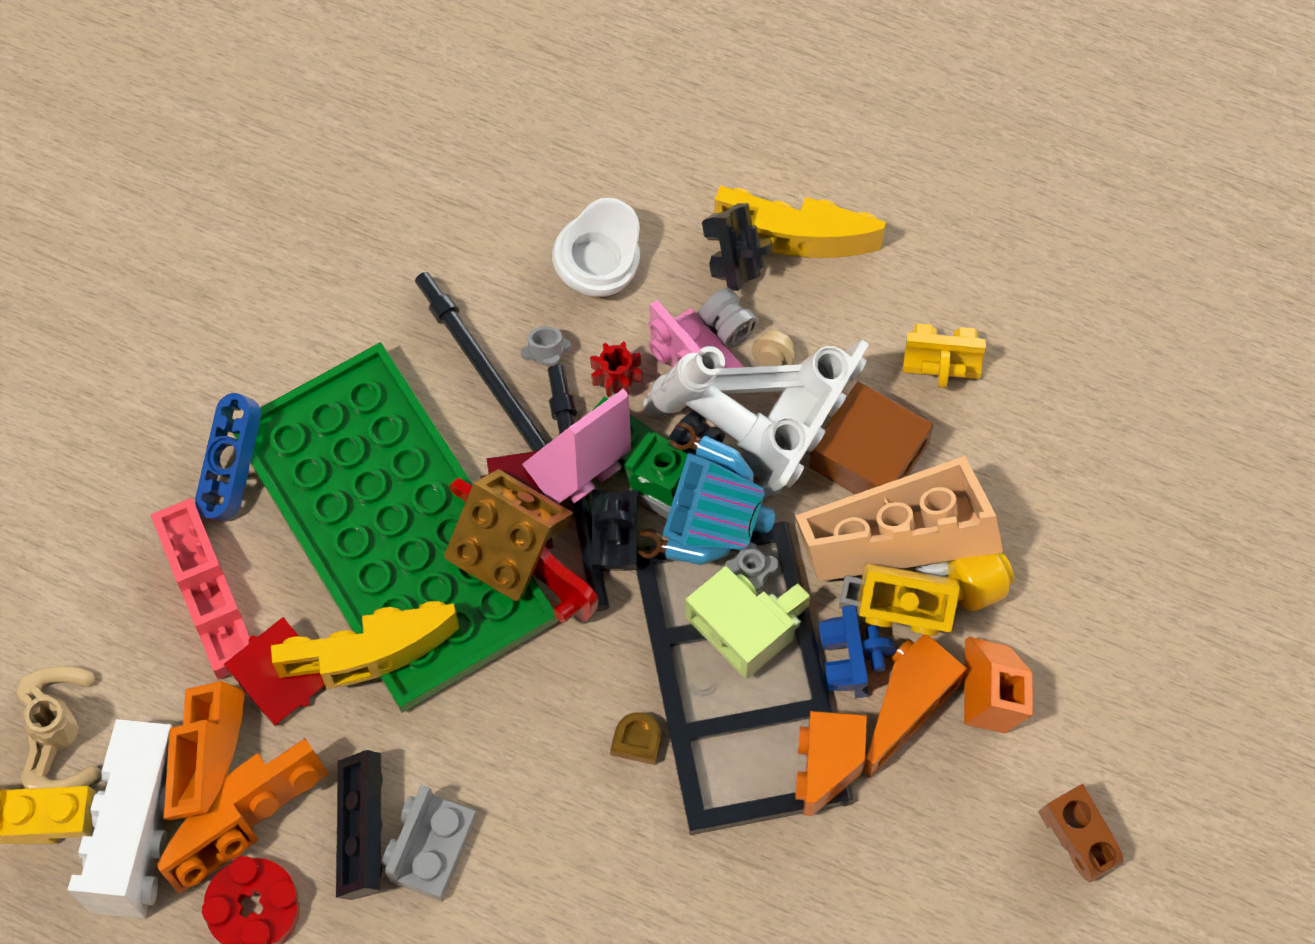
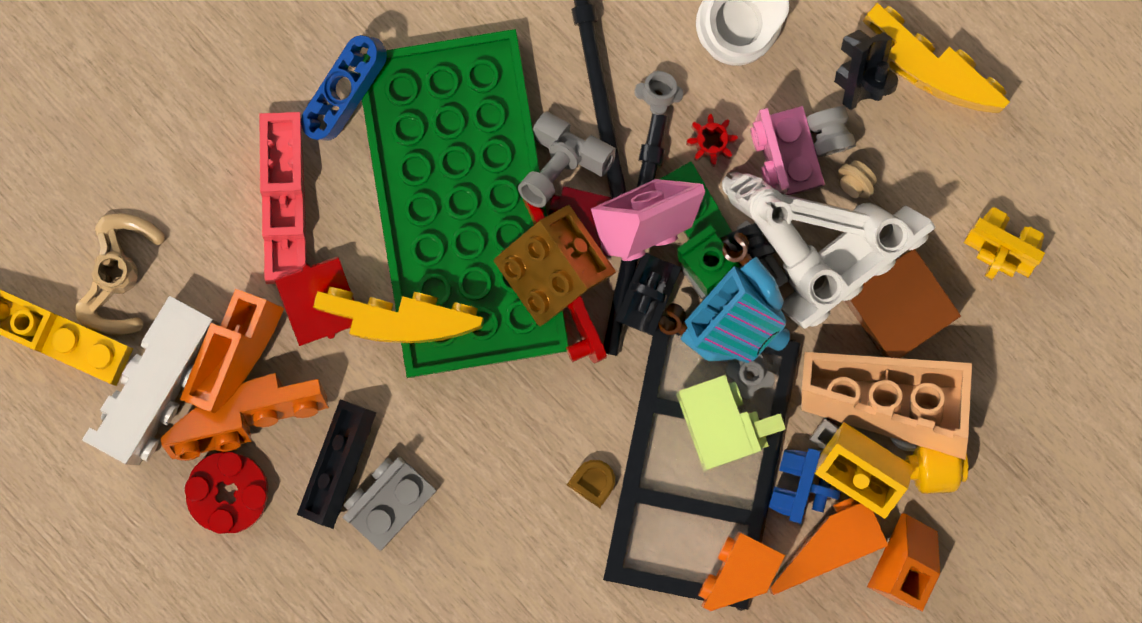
camera: 25 degrees right, 20 degrees up
(476, 433) = (566, 152): none -> light grey bar

